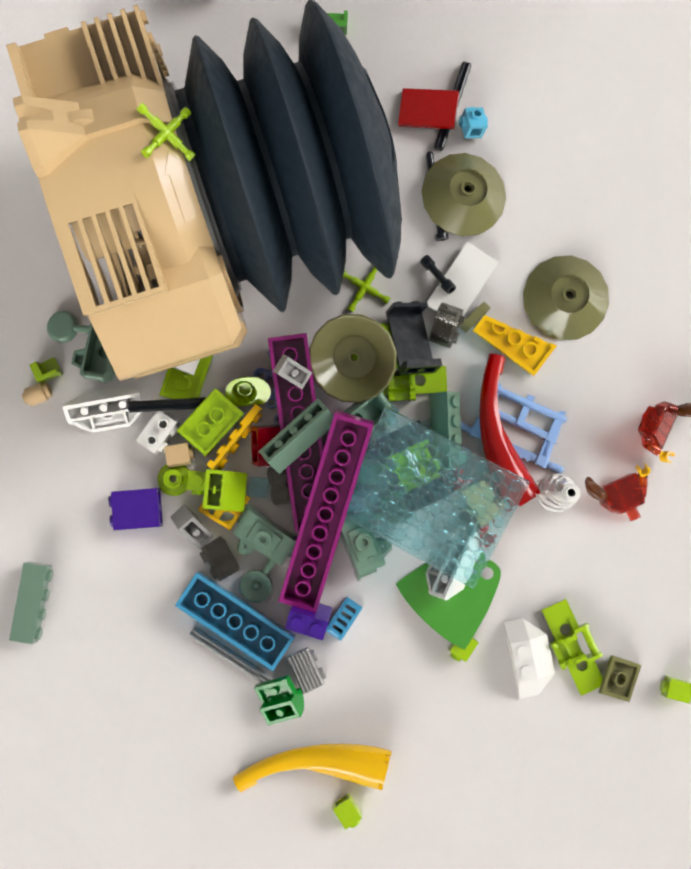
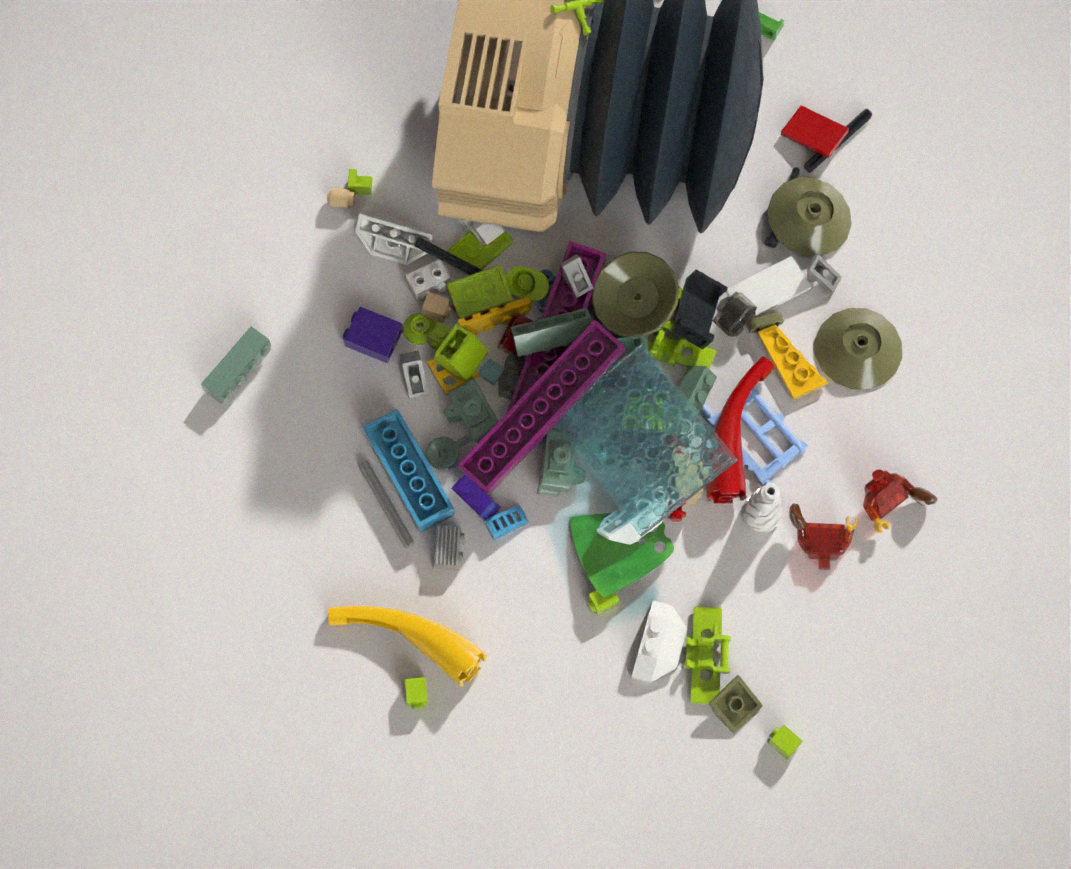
camera: 25 degrees right, 15 degrees down
(92, 359) = (416, 189): sand green piece -> none
(220, 559) = (424, 413): clear smoke brick -> none
(280, 700) = (410, 556): green brick -> none
(363, 288) = (680, 250): lime piece -> none
(446, 284) = (753, 279): black bar -> none
(473, 122) = (848, 160): medium azure brick -> none
(504, 245) = (823, 273): none -> light grey slope

